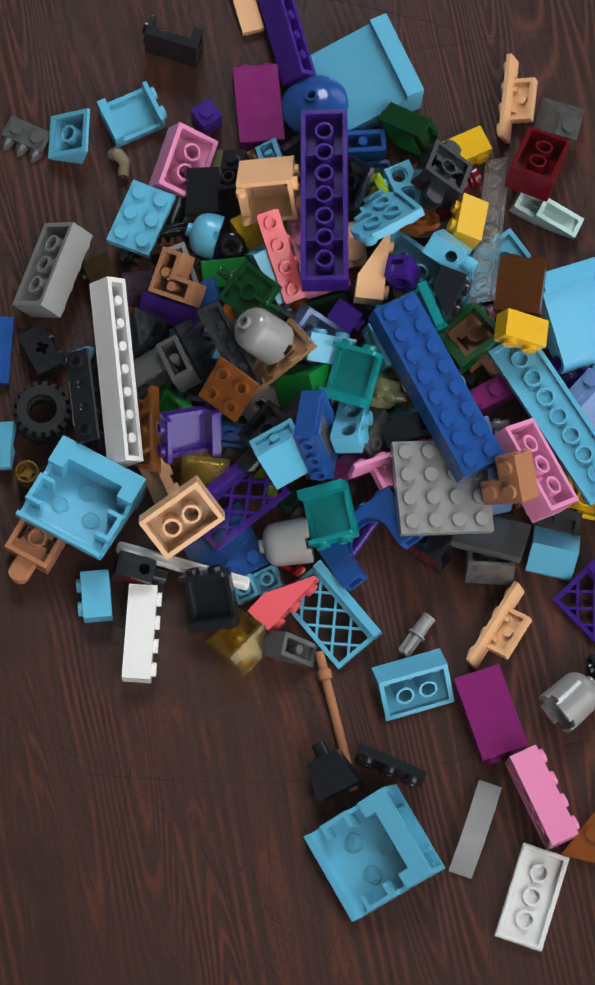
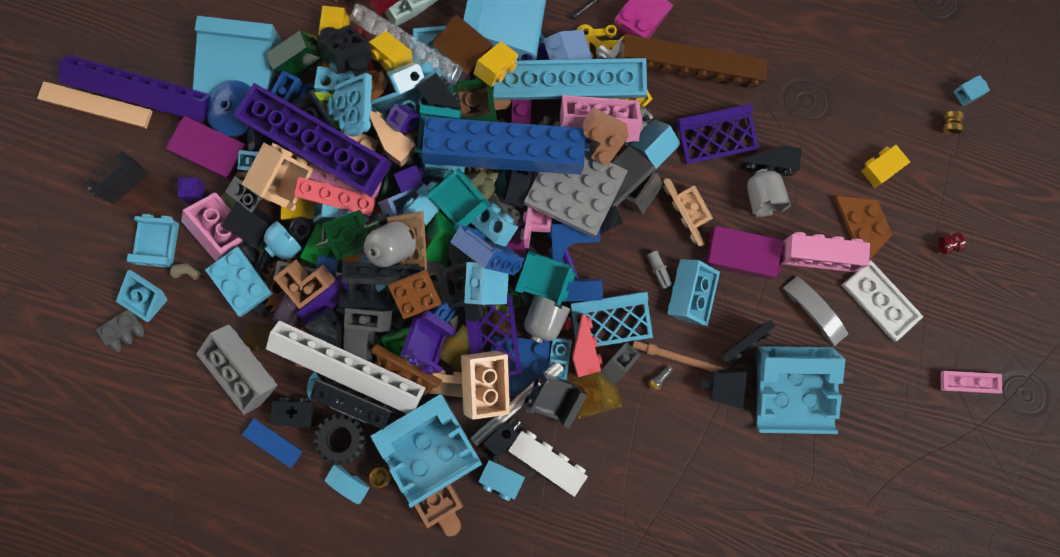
camera: 60 degrees left, 5 degrees up
(291, 699) = (656, 382): none -> dark grey piece

